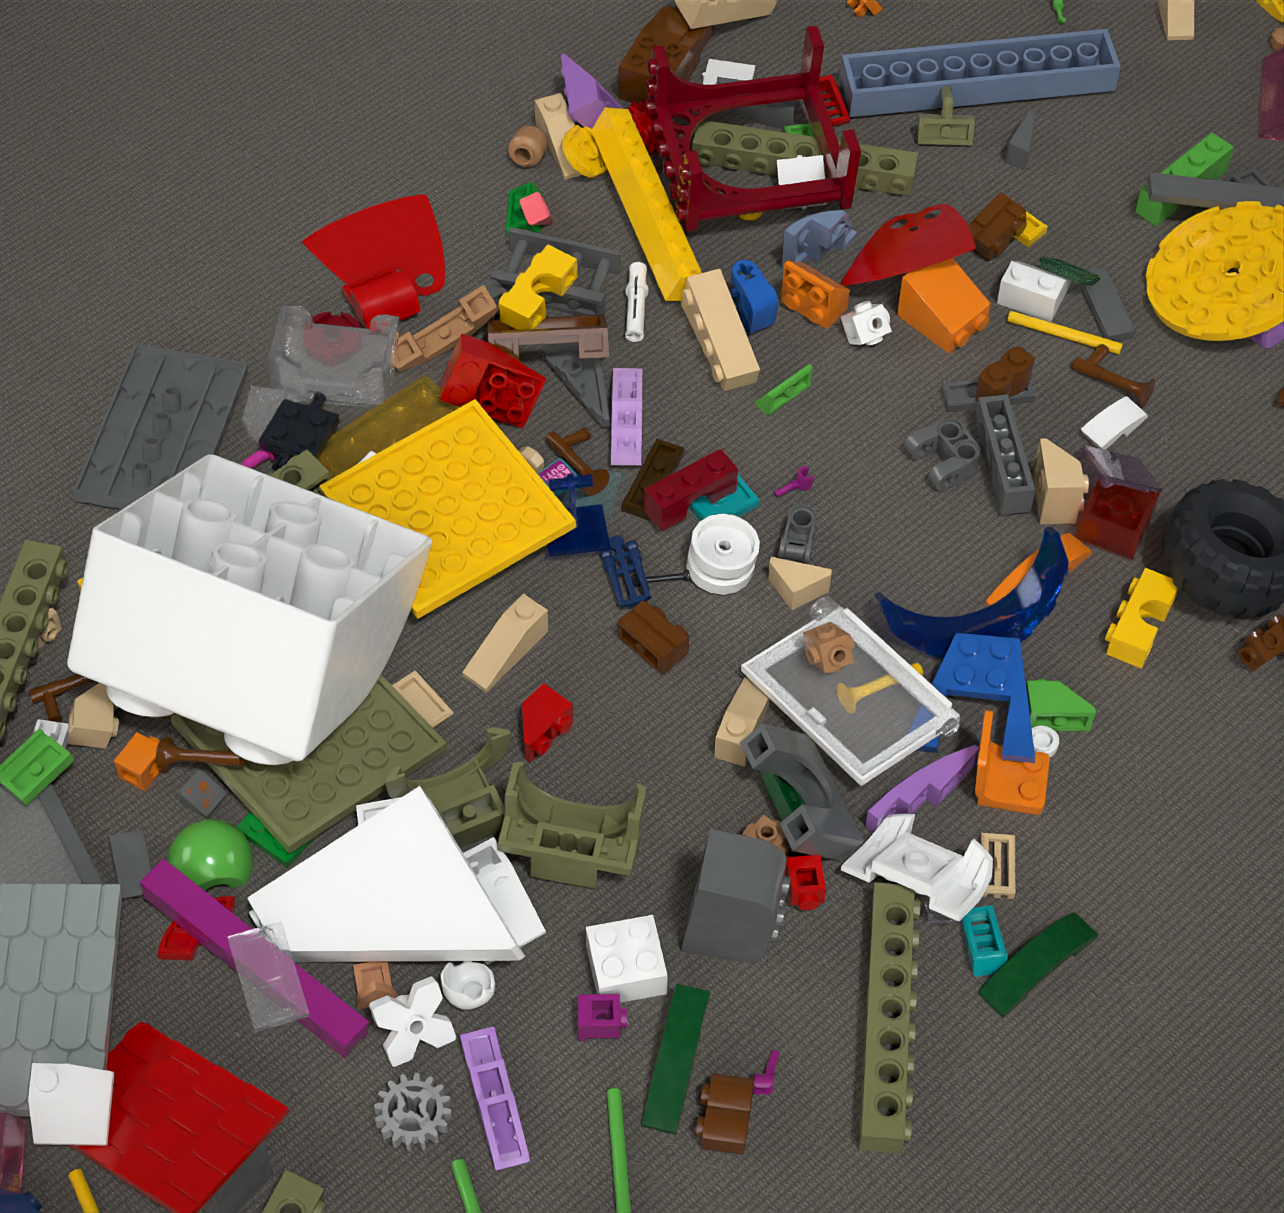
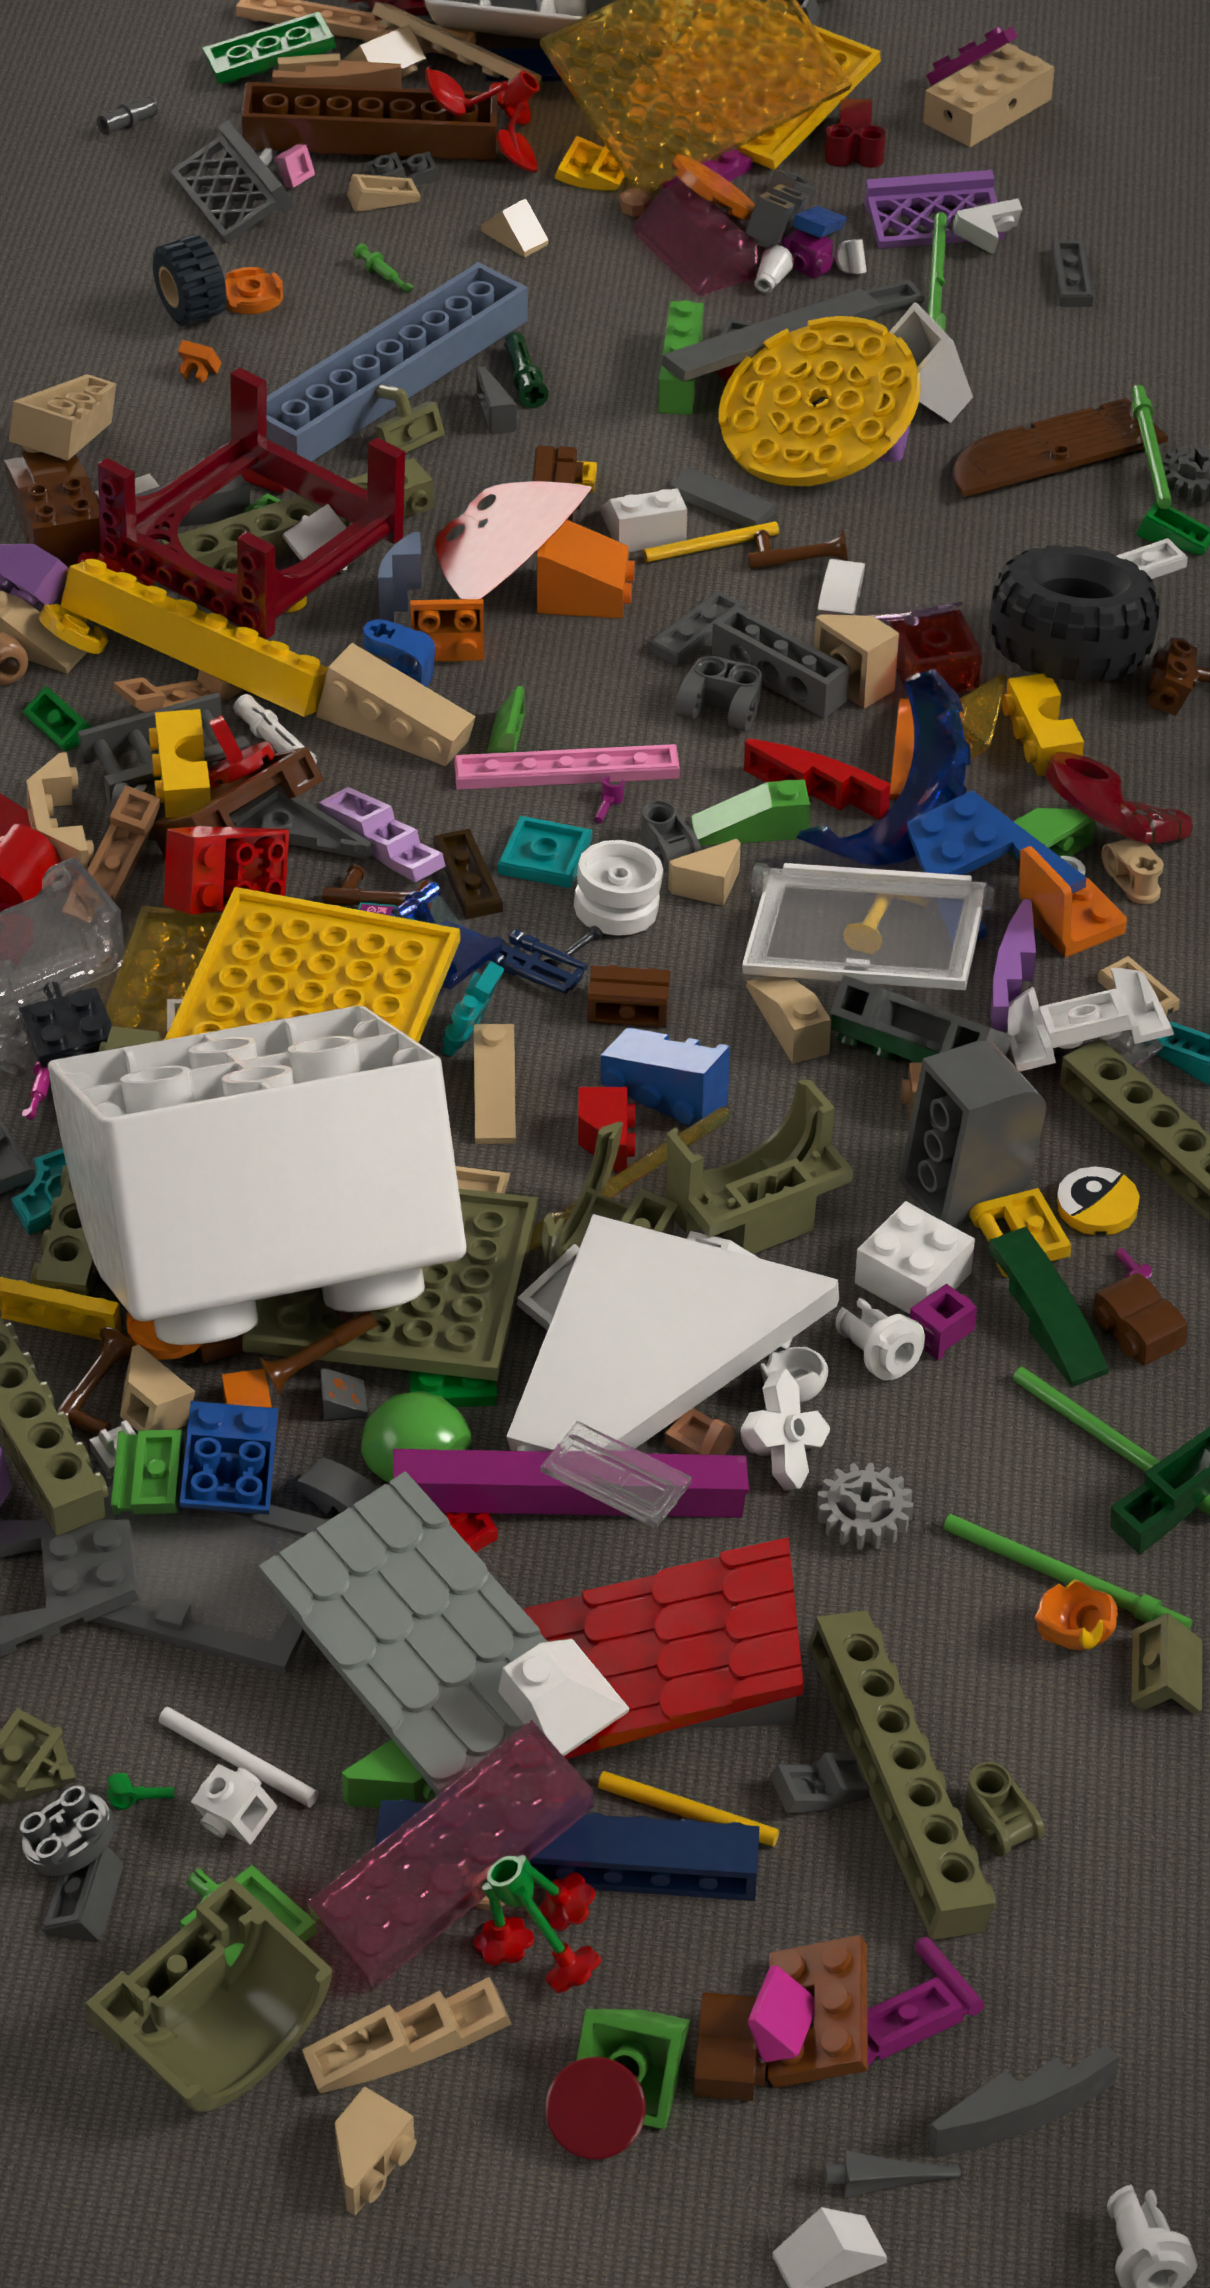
camera: 40 degrees left, 10 degrees down
(81, 794) = (229, 1457): none -> blue slope
(442, 766) = (643, 1166): none -> clear yellow piece
(465, 254) = (53, 788): none -> tan slope
(494, 1099) = (928, 1452): medium lavender slope -> none
(536, 210) = (83, 703): coral slope -> none
(544, 1010) = (889, 1343): none -> white piece
(545, 579) = (471, 1008): none -> teal plate
(570, 226) = (149, 698): none -> medium nougat slope
(574, 302) = (237, 762): none -> red tile
(612, 713) = (667, 1074): none -> blue wedge
(669, 498) = (531, 838): dark red arch -> none
(733, 990) = (1023, 1210): none -> yellow plate
(796, 442) = (566, 766): none -> bright pink tile
(799, 1004) = (1098, 1200): none -> tile
(828, 647) = (816, 893): medium nougat brick -> none
(866, 323) = (527, 627): white brick -> none
(873, 559) = (759, 815): none -> bright green slope
(940, 551) = (824, 777): none -> red slope
(1008, 375) = (711, 595): reddish brown brick -> none
(1069, 271) = (681, 482): clear green tile -> none
(1083, 108) = (526, 375): none -> dark green pin
(1089, 772) = (1134, 869): none -> tan piece
(1092, 581) = (981, 714): none -> clear yellow slope
(1110, 708) = (1099, 794): none -> dark red animal

